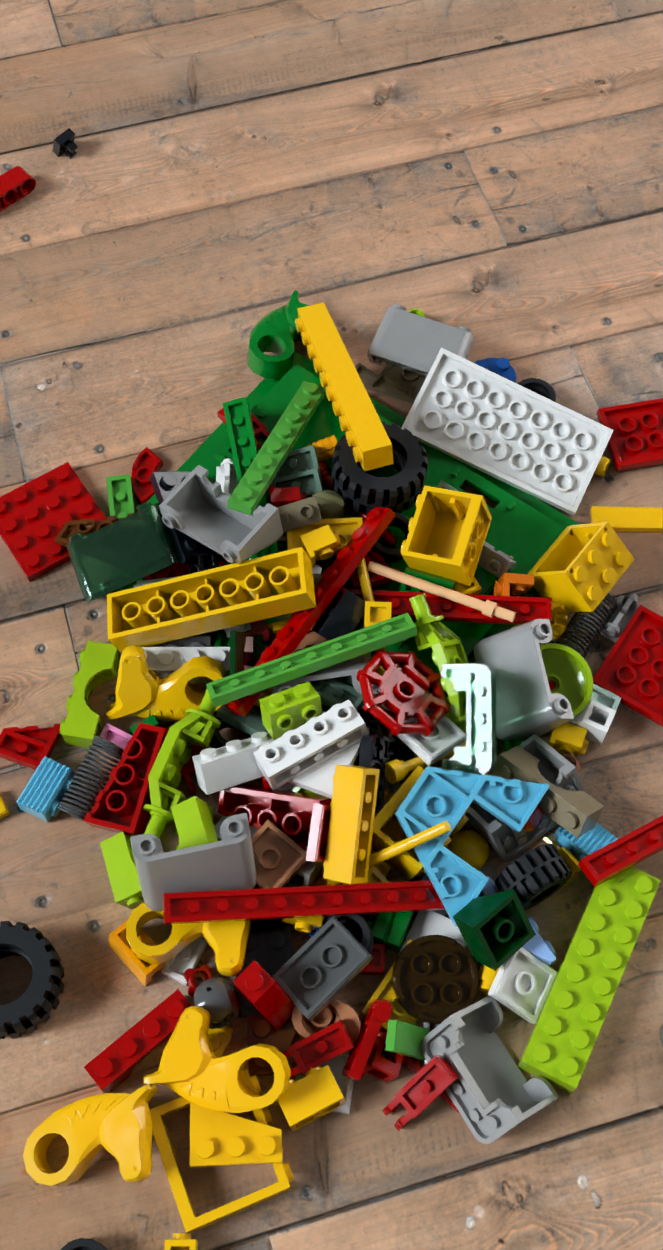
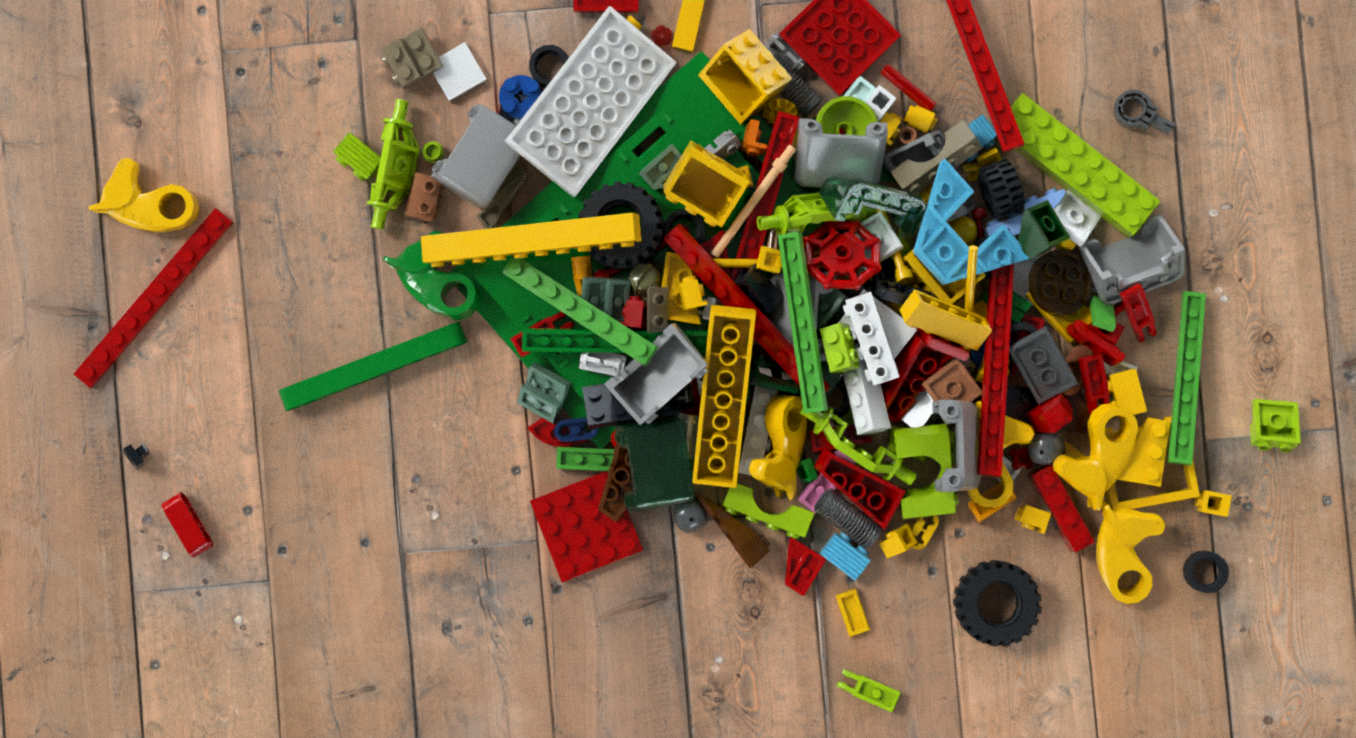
camera: 80 degrees left, 25 degrees up
(50, 671) = (743, 539): none -> reddish brown wedge
(72, 843) = (898, 541): none -> yellow brick
(76, 617) = (683, 513): none -> dark grey helmet
(88, 883) = (927, 533): none -> yellow beam
(124, 1008) = (1032, 518): none -> yellow brick
(146, 489) = (576, 430): none -> dark blue plate
(186, 451) = (543, 392): none -> sand green slope
(187, 308) = (372, 366): none -> green beam
(219, 137) = (153, 298): none -> red plate
(300, 114) = (127, 204): none -> yellow animal
(345, 1177) = (1186, 378): none -> bright green plate
(363, 314) = (423, 198): none -> nougat brick
(392, 260) = (358, 156): none -> lime brick
(392, 284) = (396, 165): none -> lime plate
(494, 867) = (978, 214): none -> red hand
(501, 327) = (459, 72): none -> white tile
(502, 284) = (411, 58): none -> dark tan plate
(593, 774) = (920, 118): none -> yellow brick
(596, 500) = (661, 29): none -> clear red plate
(623, 758) = (908, 88): none -> red axle

